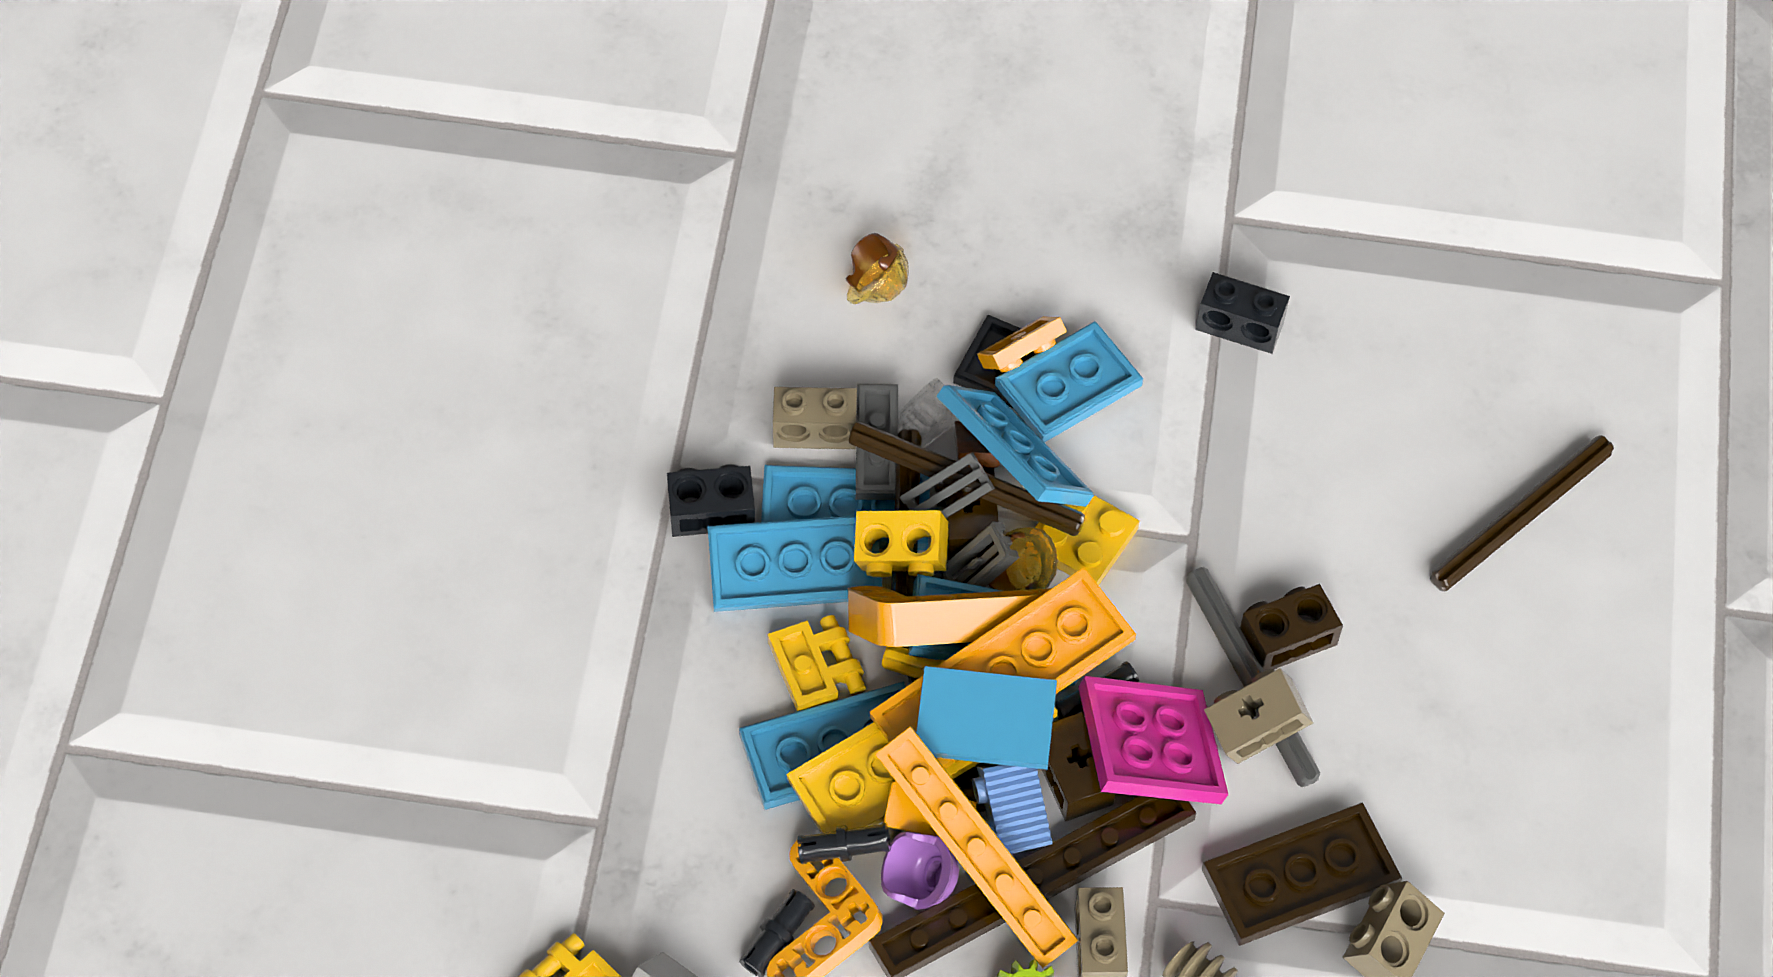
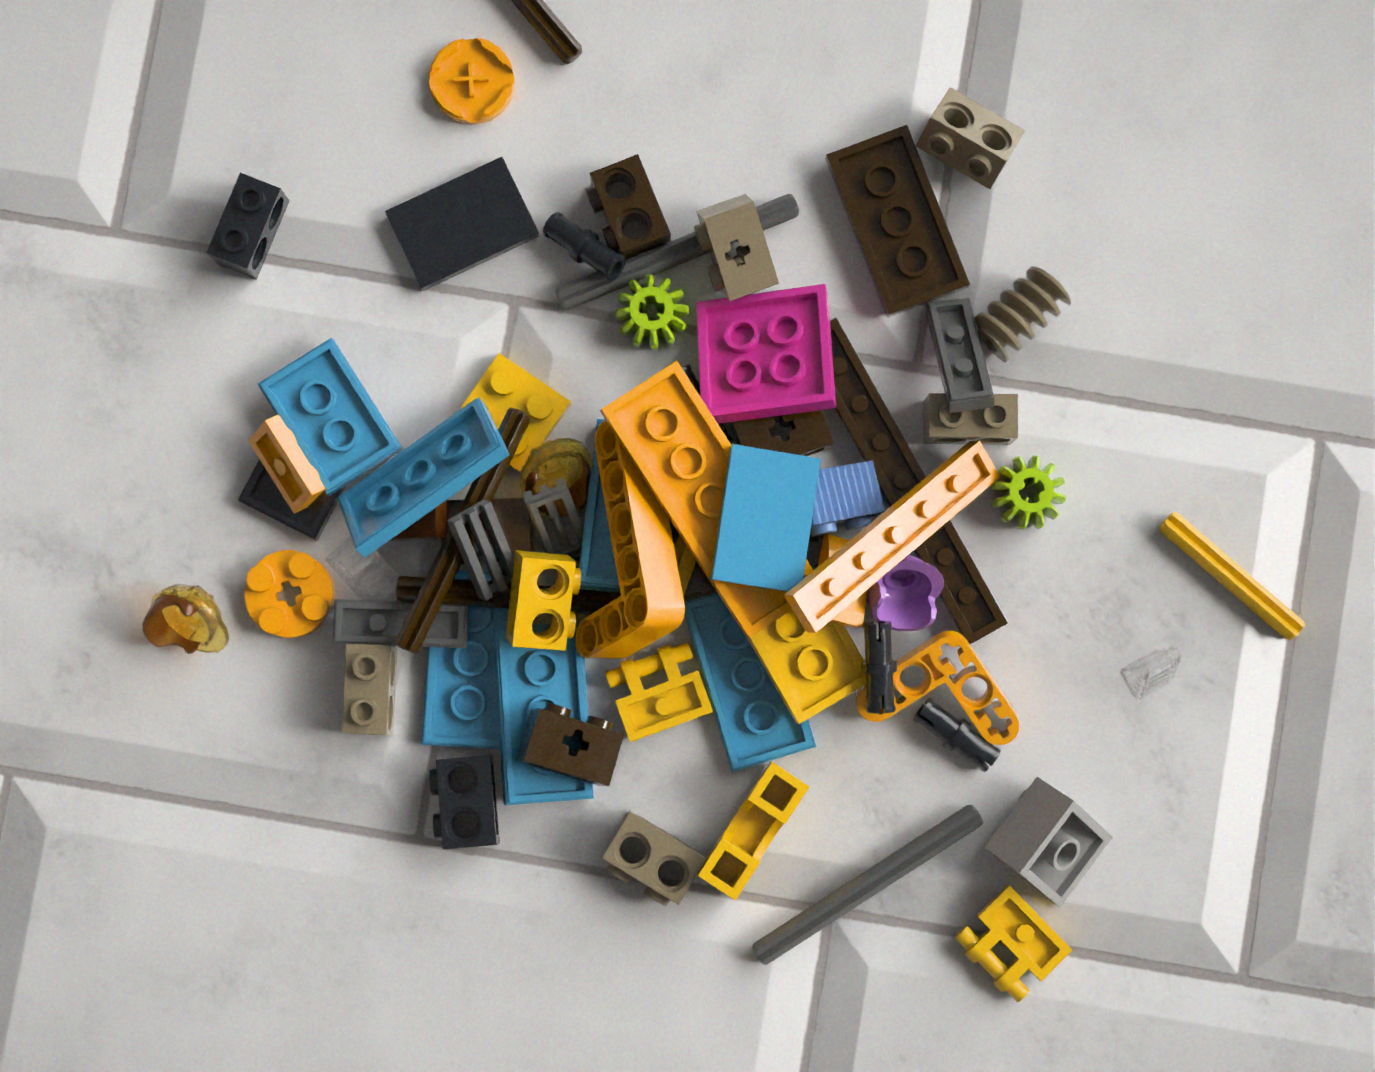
camera: 90 degrees left, 25 degrees up
(628, 855) = (867, 884): none -> dark grey axle
(655, 725) = (752, 830): none -> yellow arch
(664, 660) = (659, 848): none -> dark tan brick
(763, 550) = (544, 749): none -> dark brown brick
(902, 338) = (311, 605): none -> light orange plate
(1164, 921) = (959, 355): none -> dark grey tile
(1202, 639) = (639, 321): none -> lime gear
(1248, 587) = (584, 246): none -> black pin
(1263, 491) = (462, 223): none -> black tile
(1403, 497) = (471, 80): none -> light orange tile

